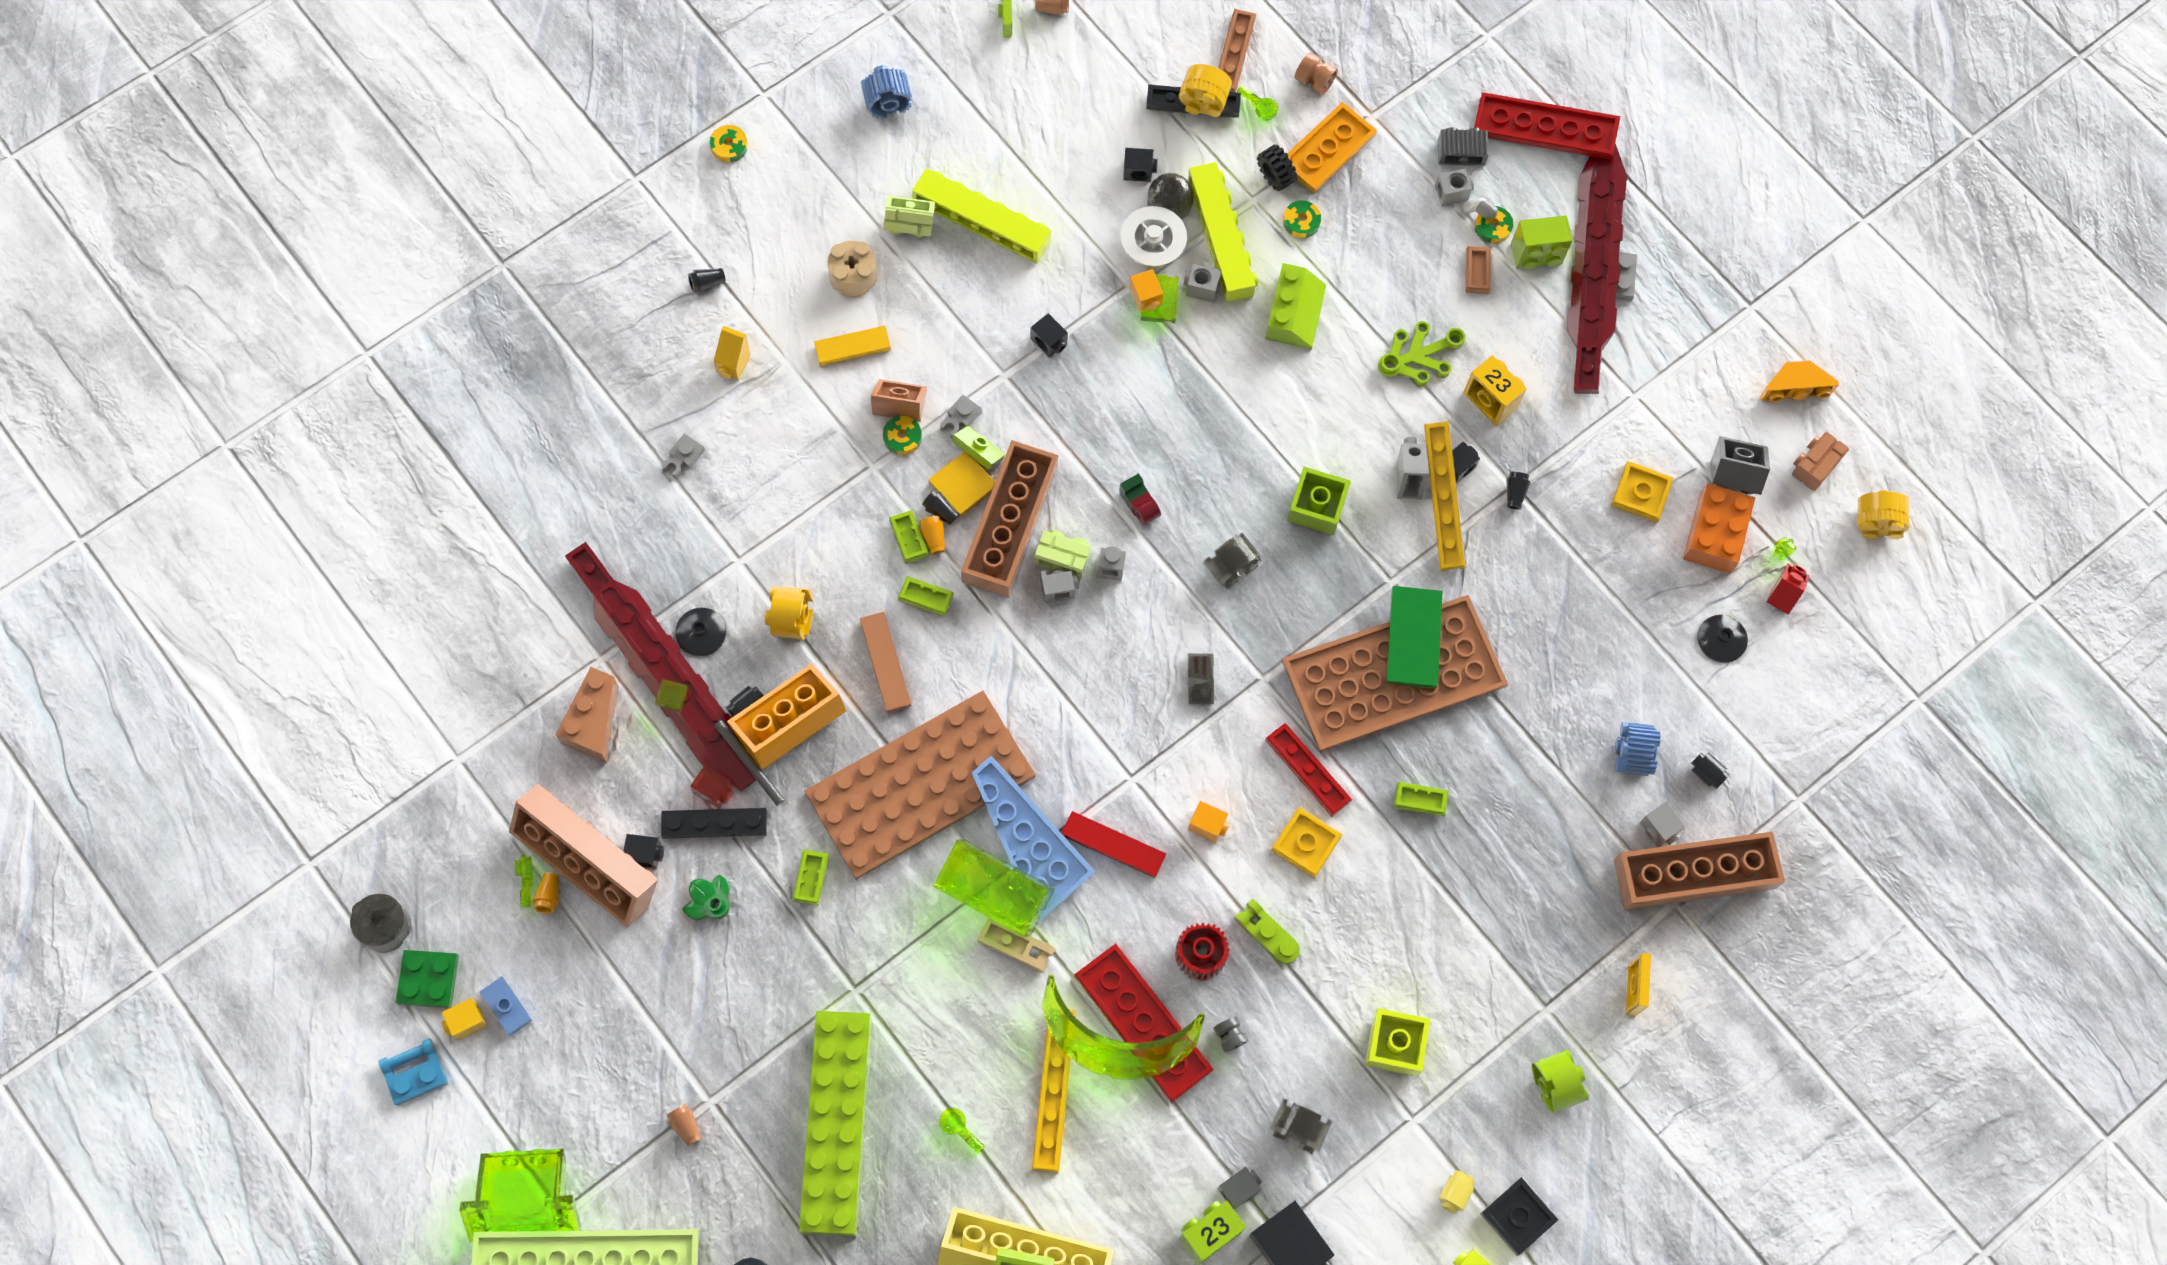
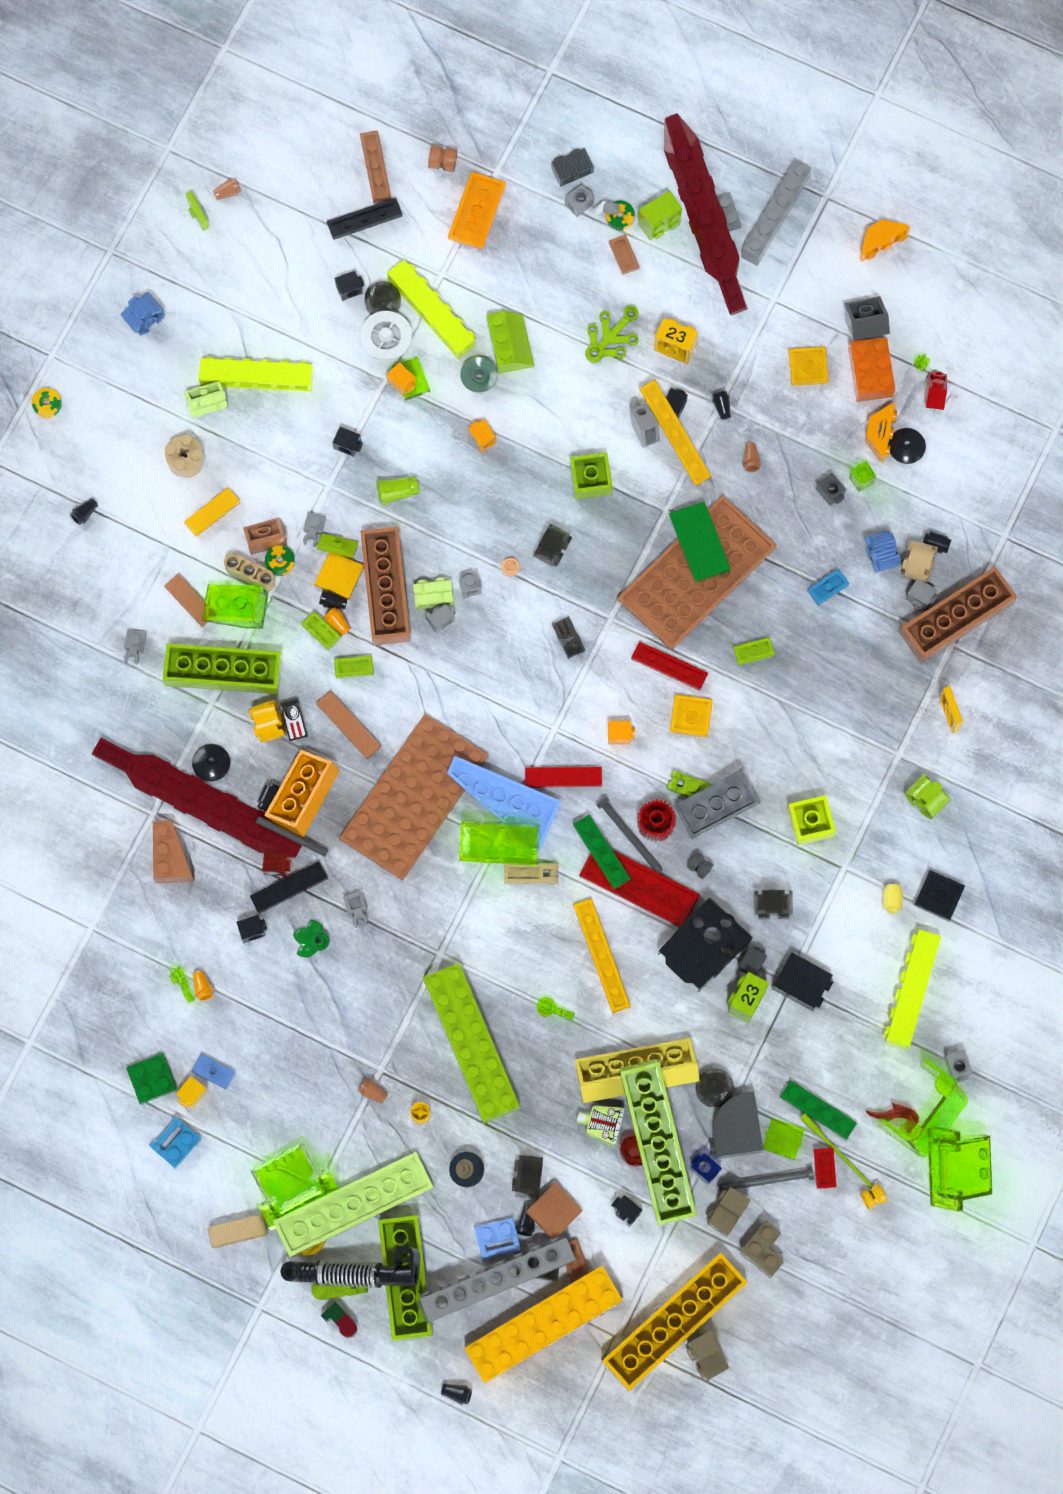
camera: 20 degrees left, 5 degrees up
(368, 914) = (106, 1047): clear smoke brick -> none
(425, 1223) = (237, 1231): none -> tan beam
(582, 855) = (214, 949): nougat brick -> none
(671, 695) = (216, 815): clear neon green tile -> none
(725, 1179) = (420, 1109): none -> yellow wheel
(731, 353) = (132, 558): yellow slope -> none
(769, 527) = (222, 668): none -> lime brick
(774, 433) = (187, 598): none -> nougat tile
(781, 883) = (355, 906): none -> light grey plate
(810, 877) = (372, 893): lime plate -> none
(822, 625) = (293, 719): none -> slope
(823, 462) = (236, 605): none -> clear neon green slope
(856, 421) = (244, 565): none -> tan beam
(1080, 414) = (396, 489): none -> lime plant
(1114, 1057) = (626, 917): clear neon green windscreen -> none
(1115, 959) = (601, 852): none -> green plate
(1139, 499) = (467, 531): leg -> none
(1147, 901) = (629, 834): none -> dark grey bar
(1164, 1143) = (695, 958): none -> black piece
(1171, 564) = (510, 567): none -> light nougat plate
(1205, 90) = (371, 210): yellow piece -> none
(1205, 291) = (439, 346): light grey brick -> none
(1211, 397) = (481, 435): none -> light orange brick
(1243, 319) = (479, 366): none -> sand green dish
(1265, 108) = (418, 200): clear neon green plate -> none
(1277, 167) = (448, 244): black tyre -> none
(1287, 965) = (717, 804): none -> dark grey plate
(1300, 228) = (486, 280): piece -> none
(1523, 568) = (751, 458): none -> nougat cone
(1548, 125) = (624, 123): red tile -> none
(1549, 763) = (828, 587): none -> dark azure plate
(1605, 637) = (831, 482): none -> dark grey brick
(1651, 649) = (862, 476): none -> clear neon green brick
(1678, 782) = (919, 561): none -> tan brick
(1682, 299) = (776, 212): none -> light grey brick
(1698, 605) = (880, 430): none -> light orange slope
(1819, 461) = (920, 288): nougat brick -> none
(1883, 514) = (978, 309): yellow piece -> none

